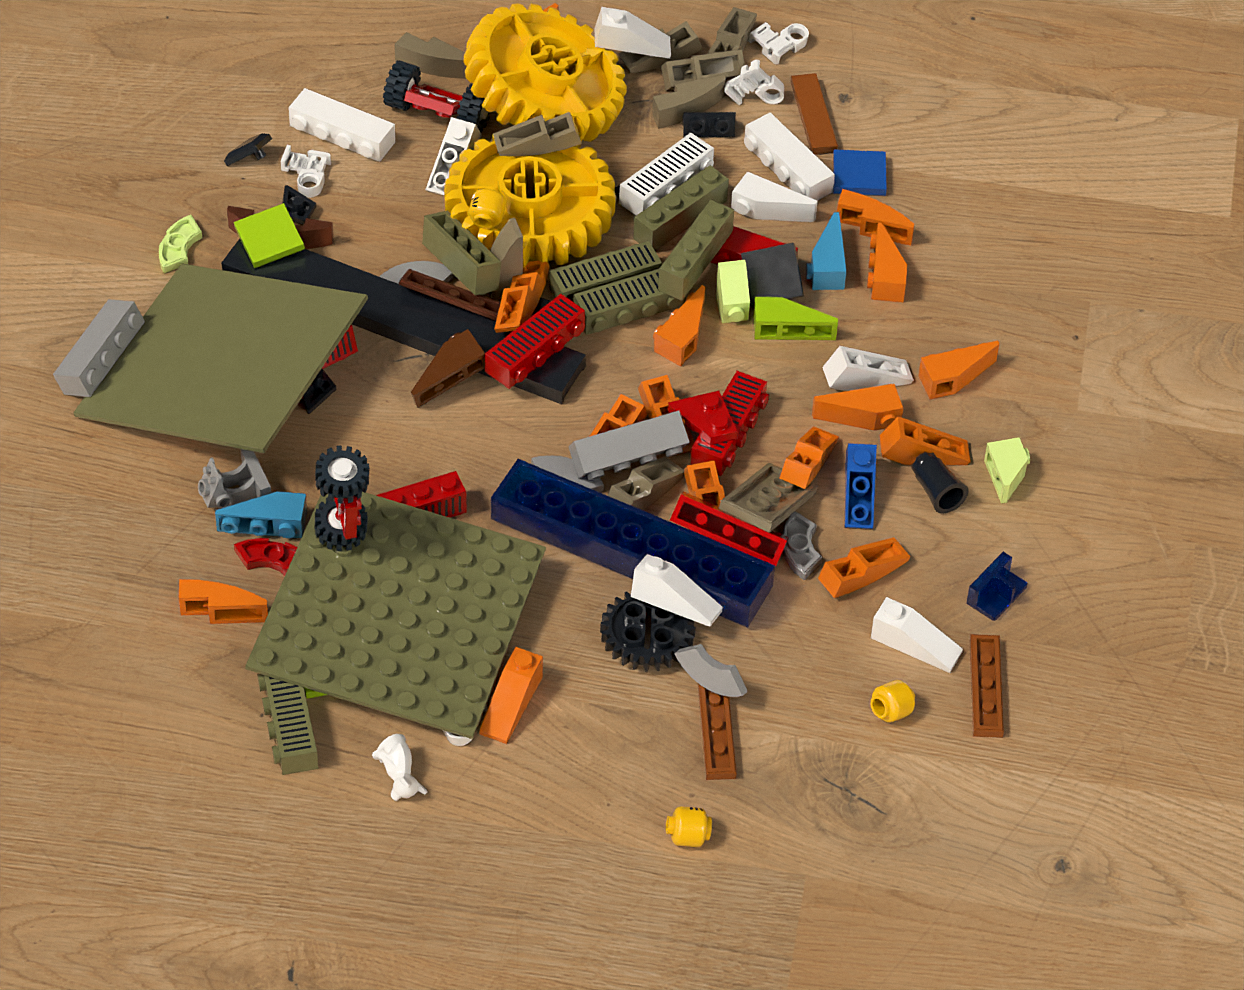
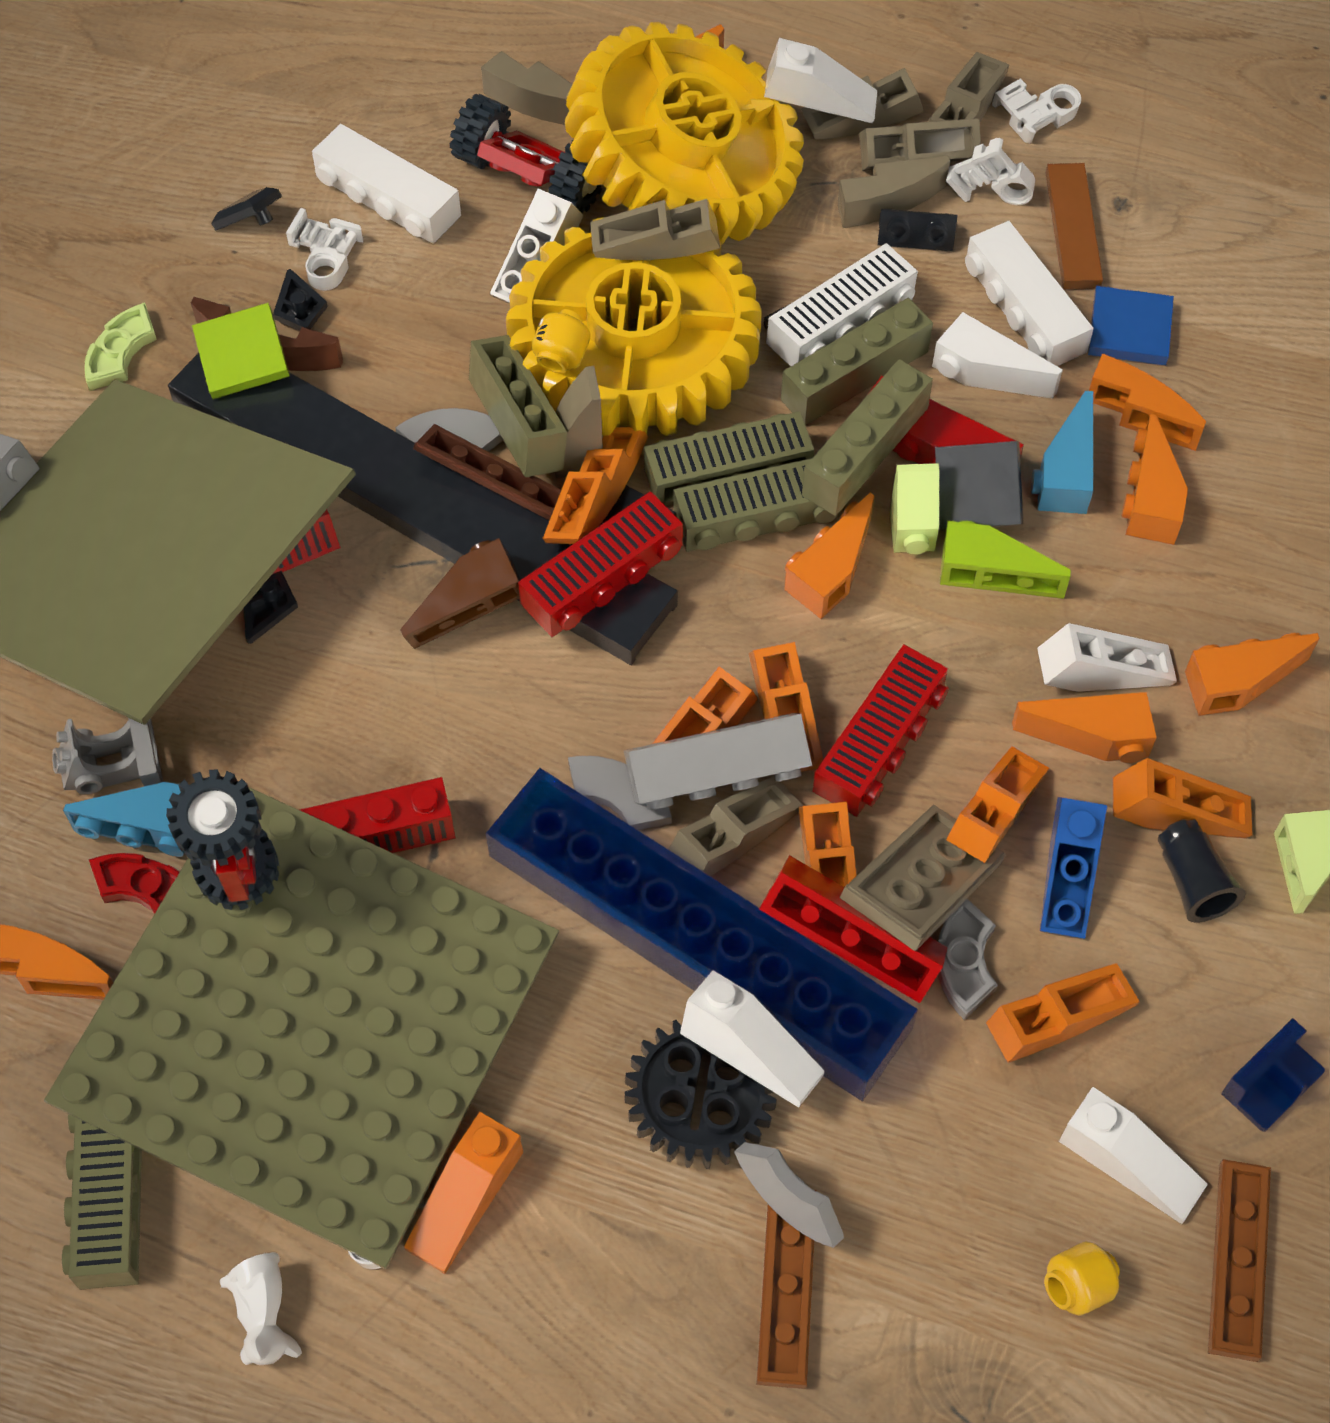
camera: 10 degrees right, 10 degrees up
(706, 416) = (845, 722): red wing -> none

